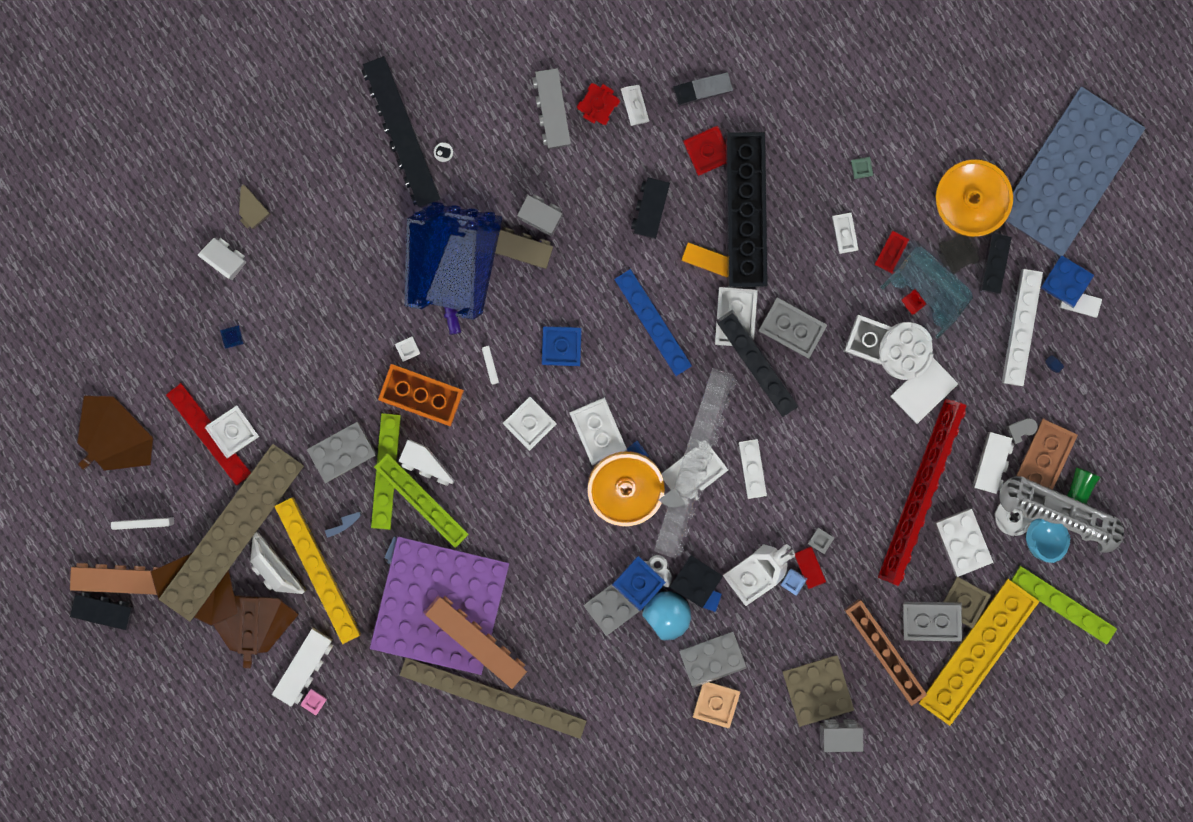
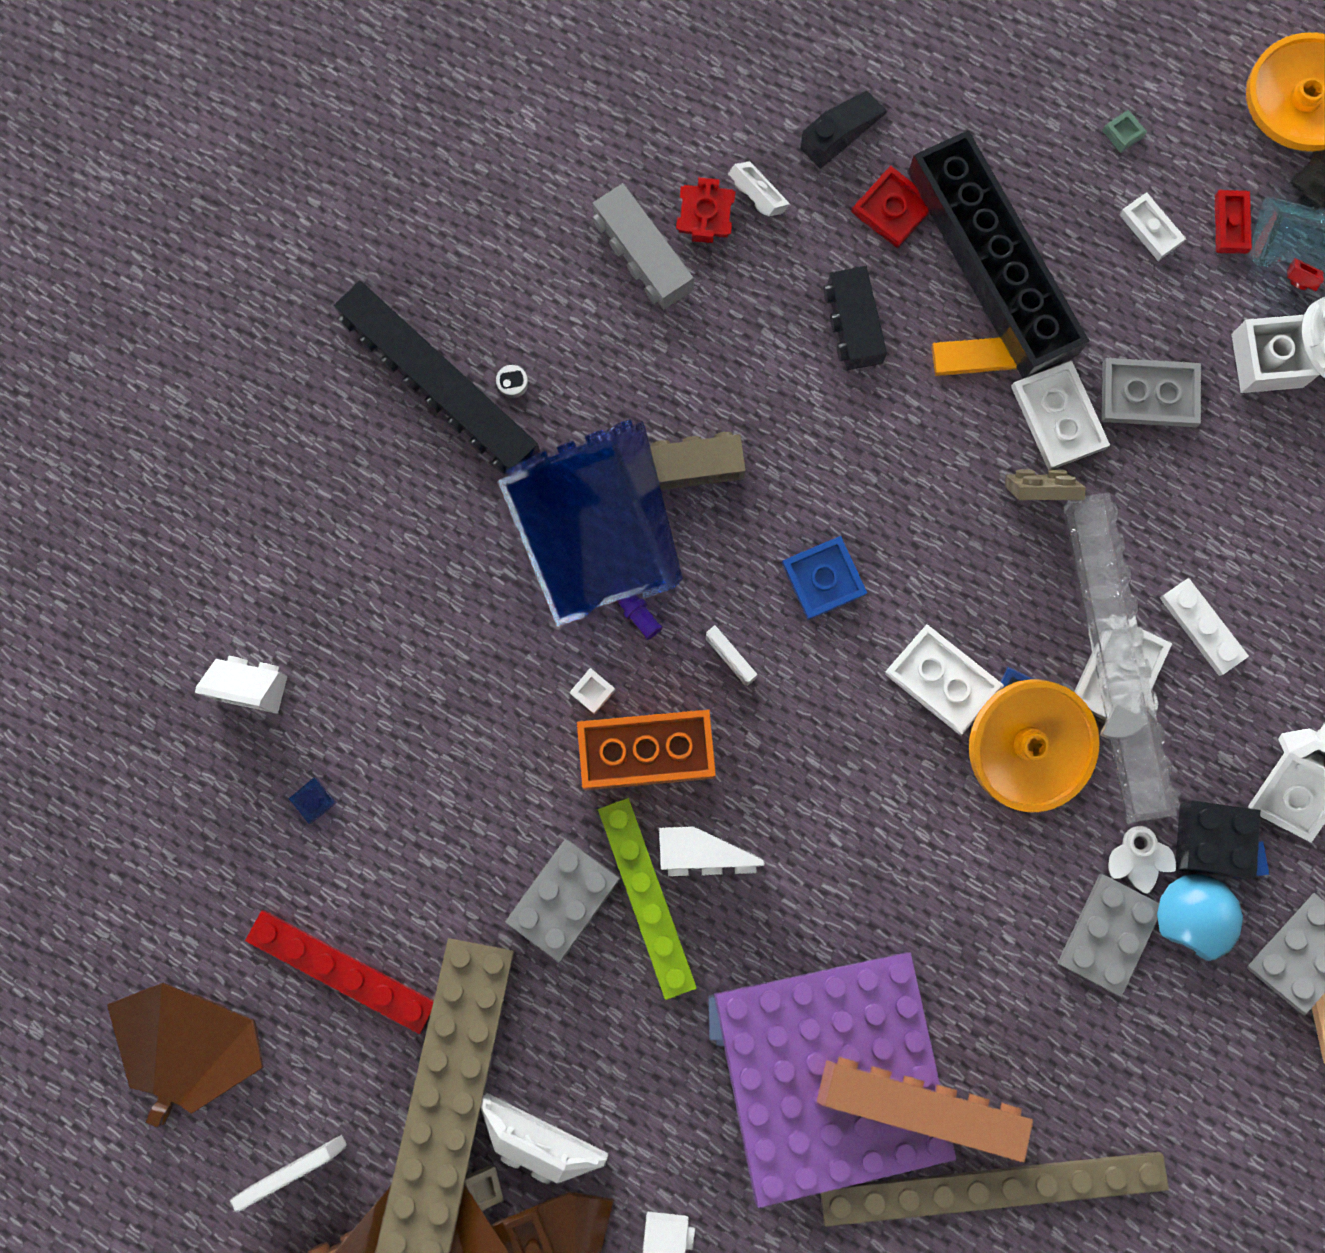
camera: 20 degrees left, 10 degrees down
(231, 432) = (373, 950): white plate -> none
(237, 576) = (484, 1187): none -> dark tan plate
(251, 209) = (259, 592): dark tan slope -> none
(317, 570) = (614, 1114): yellow brick -> none
(347, 522) = (622, 1007): sand blue slope -> none
(421, 500) = (724, 917): lime plate -> none
(529, 423) = (833, 717): white plate -> none
(540, 215) = (700, 392): light grey brick -> none
(638, 583) = (1133, 886): blue plate -> none
(653, 322) = (942, 481): blue plate -> none
(703, 354) = (1054, 486): none -> dark tan plate
(757, 363) = (1133, 461): black brick -> none

